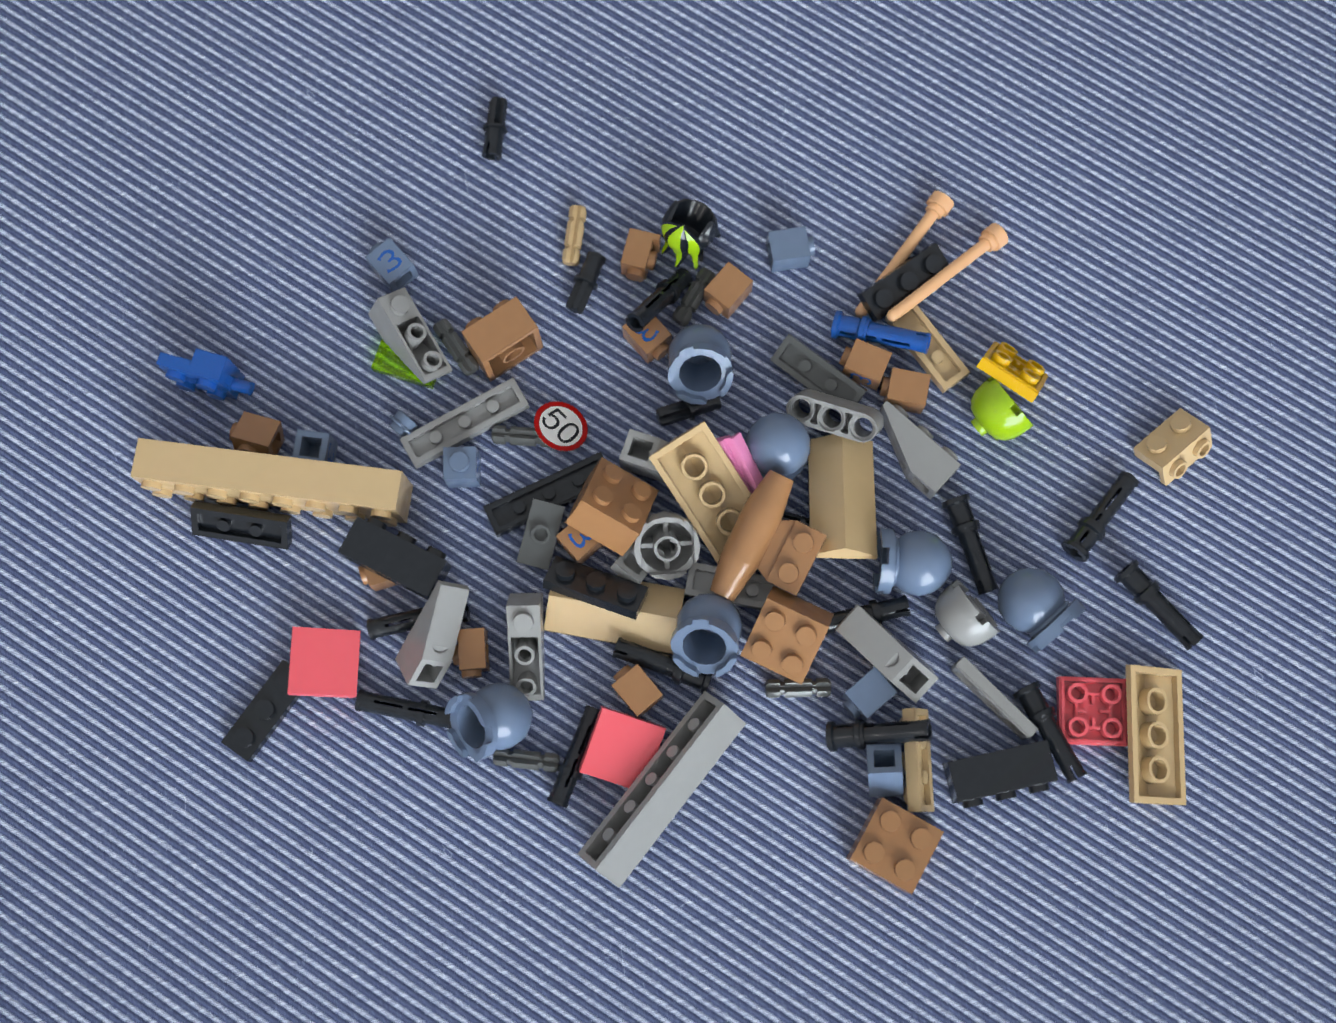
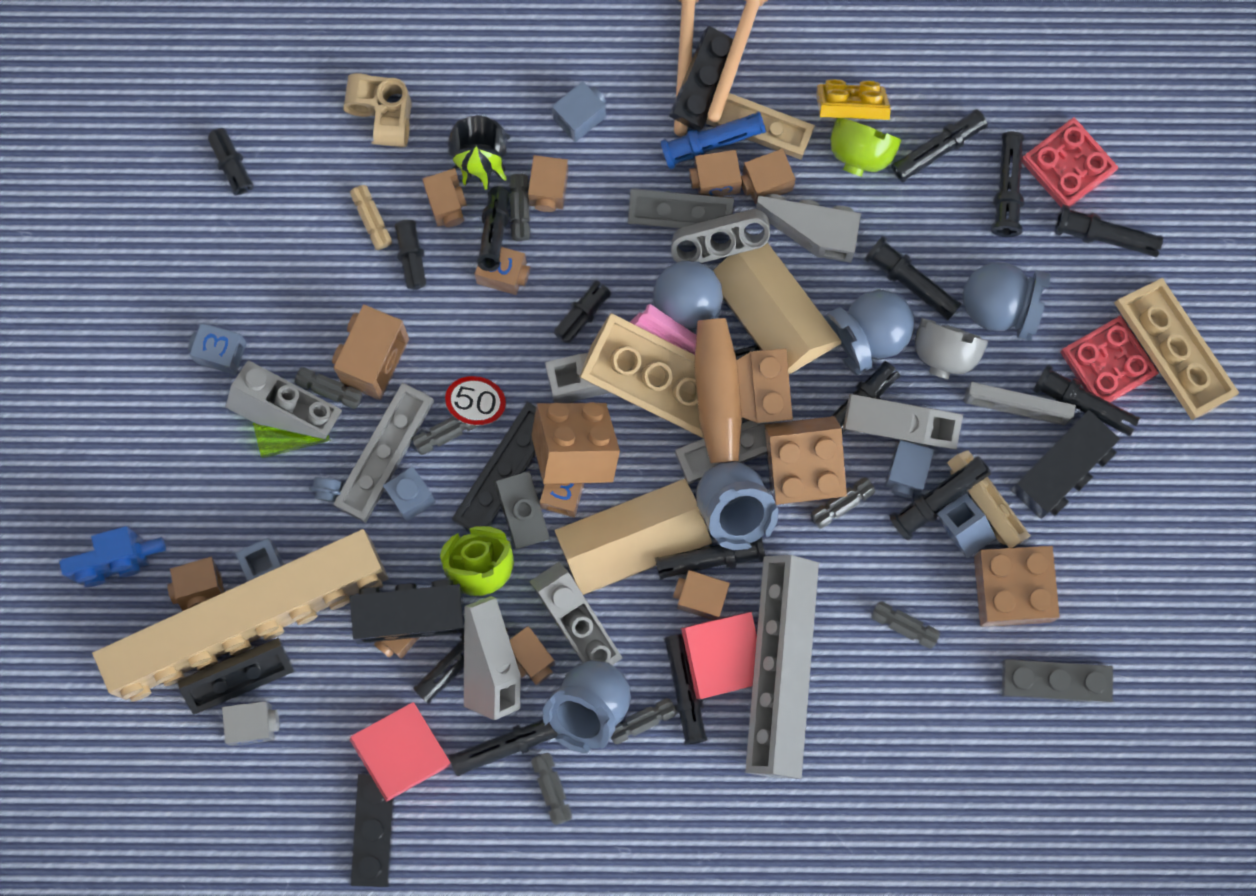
camera: 35 degrees left, 0 degrees up
(227, 567) = (250, 723): none -> light grey brick
(421, 767) = (551, 788): none -> dark grey axle
(478, 552) = (478, 560): none -> lime cylinder
(595, 587) = (604, 526): black plate -> none
(627, 567) = (627, 486): light grey plate -> none
(632, 142) = (368, 97): none -> tan piece
(667, 546) = (648, 447): light grey cylinder -> none
(700, 364) = (570, 264): sand blue tile -> none
(785, 818) = (905, 624): none -> dark grey axle
(880, 944) = (1057, 681): none -> dark grey plate
(1064, 449) = (970, 125): none -> black pin
(1163, 529) = (1069, 163): none -> coral tile
(1175, 445) = (1033, 82): tan bracket -> none

